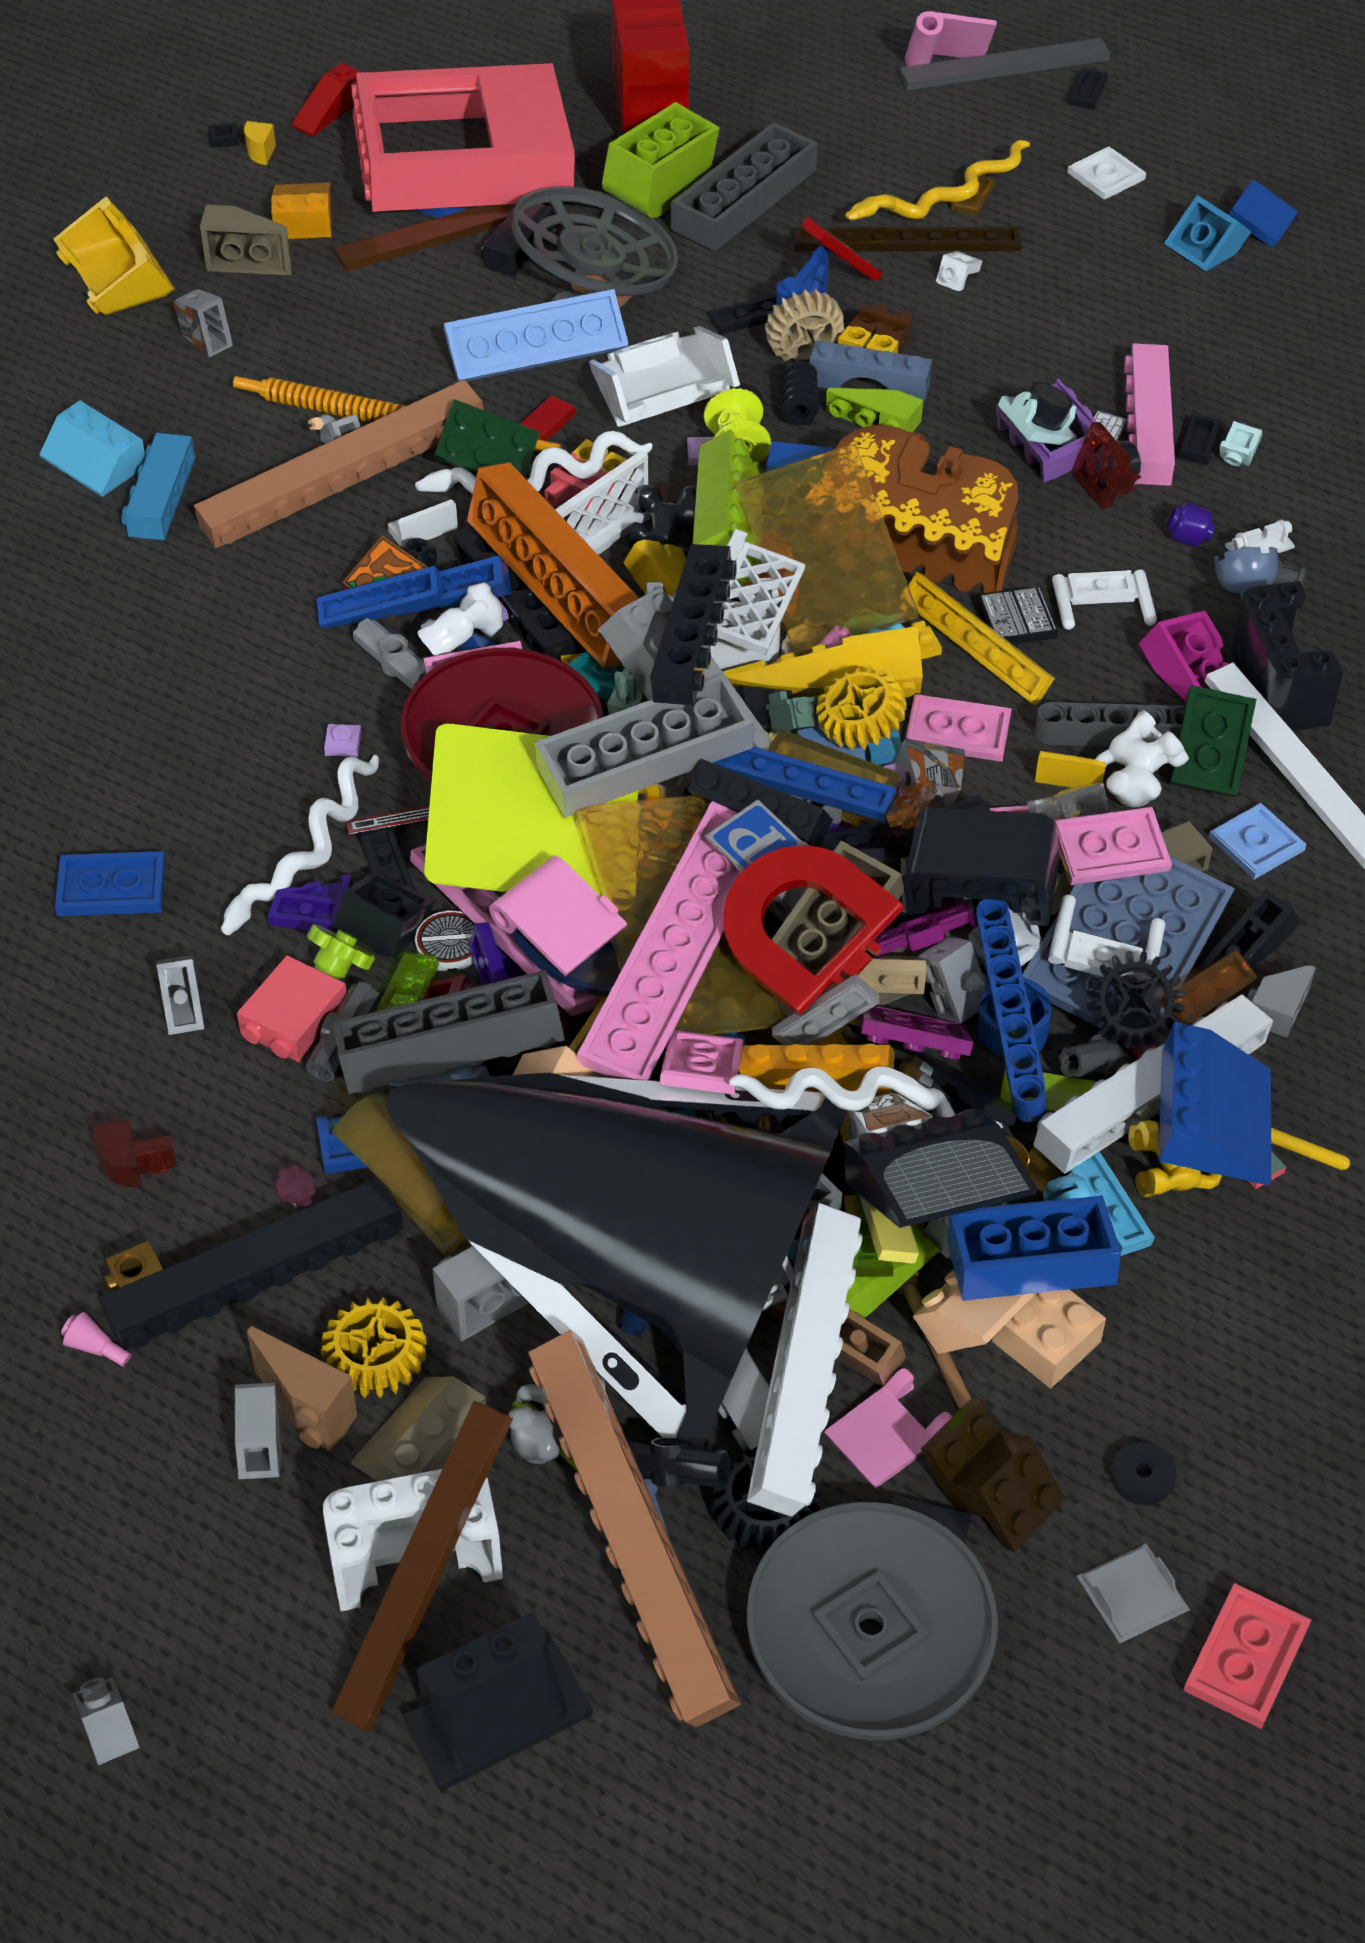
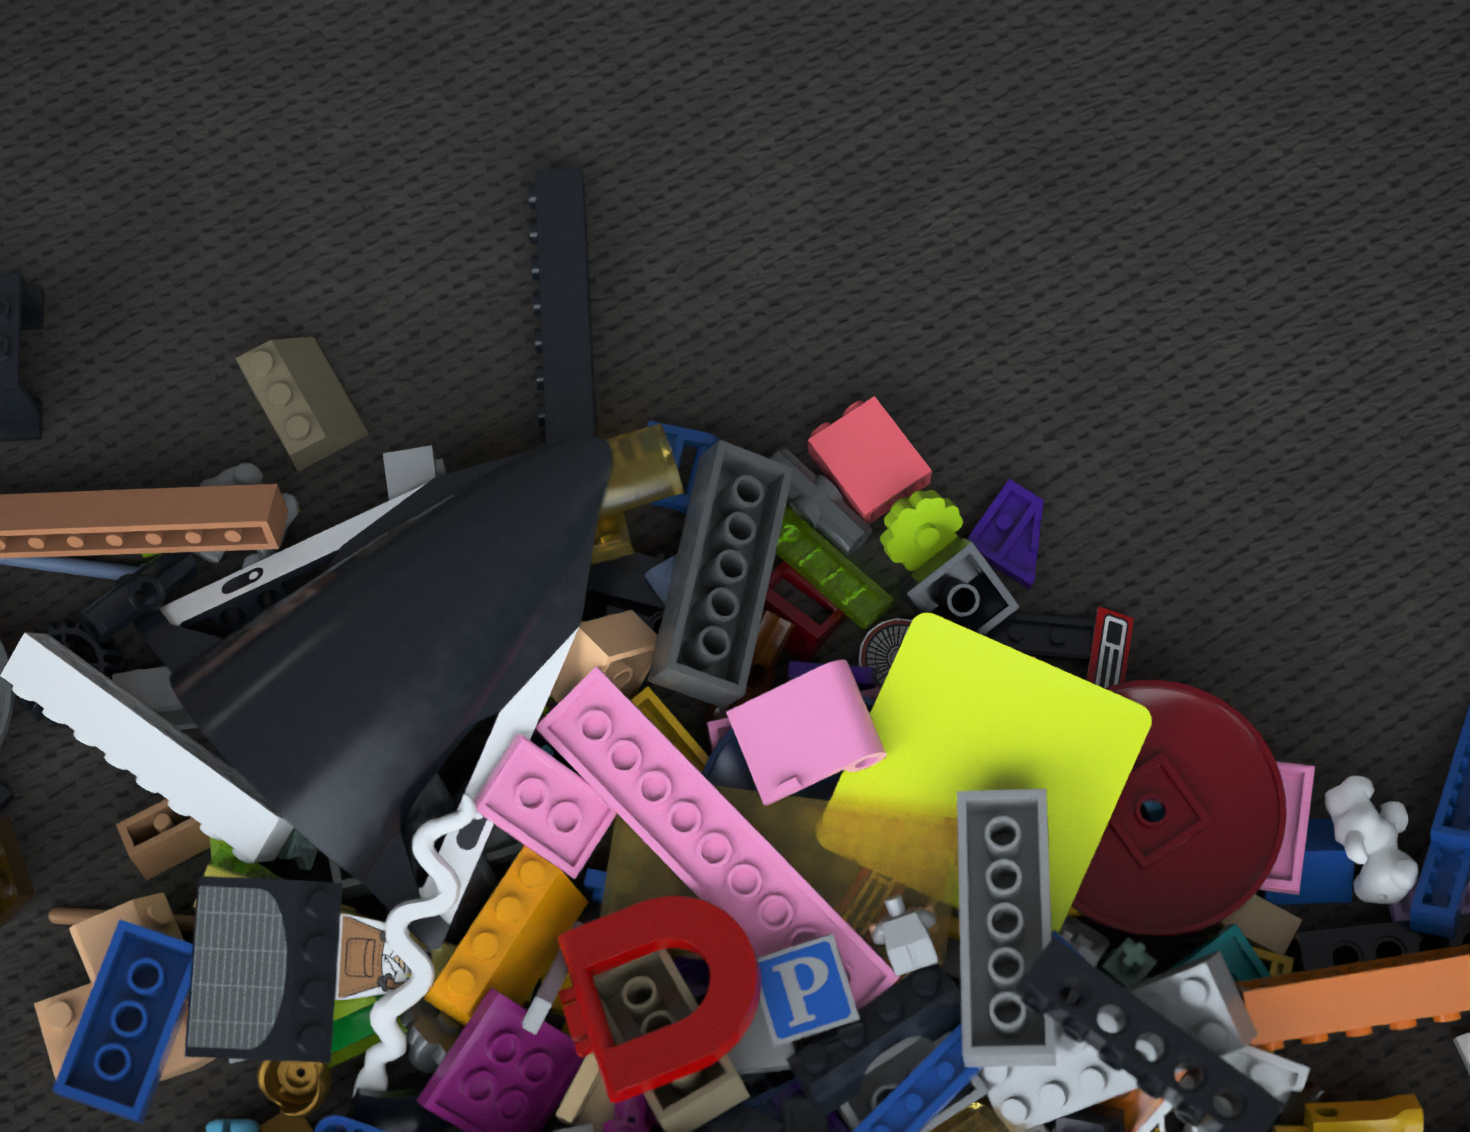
camera: 120 degrees right, 20 degrees up
(85, 1335) = (562, 153): bright pink cone -> none
(105, 1719) = (165, 58): light grey slope -> none
(110, 883) = (1134, 342): blue plate -> none
(125, 1159) = (749, 242): clear red brick -> none
(134, 1261) = (610, 228): pearl gold brick -> none
(180, 994) = (944, 359): light grey slope -> none
(240, 908) = (1043, 462): white animal -> none
(257, 1431) = (361, 252): light grey slope -> none
(295, 1186) = (639, 388): clear pink plant -> none
(309, 1392) = (388, 302): medium nougat slope -> none
(342, 740) = (1260, 657): lavender plate -> none
(376, 1520) = (186, 380): white windscreen -> none
(390, 651) = (1396, 753): light grey piece -> none
(392, 1357) = (429, 367): yellow gear -> none
(421, 1566) = (125, 323): reddish brown tile -> none
(683, 802) = (906, 935): none -> light grey piece
(881, 1433) = (80, 821): bright pink flag -> none

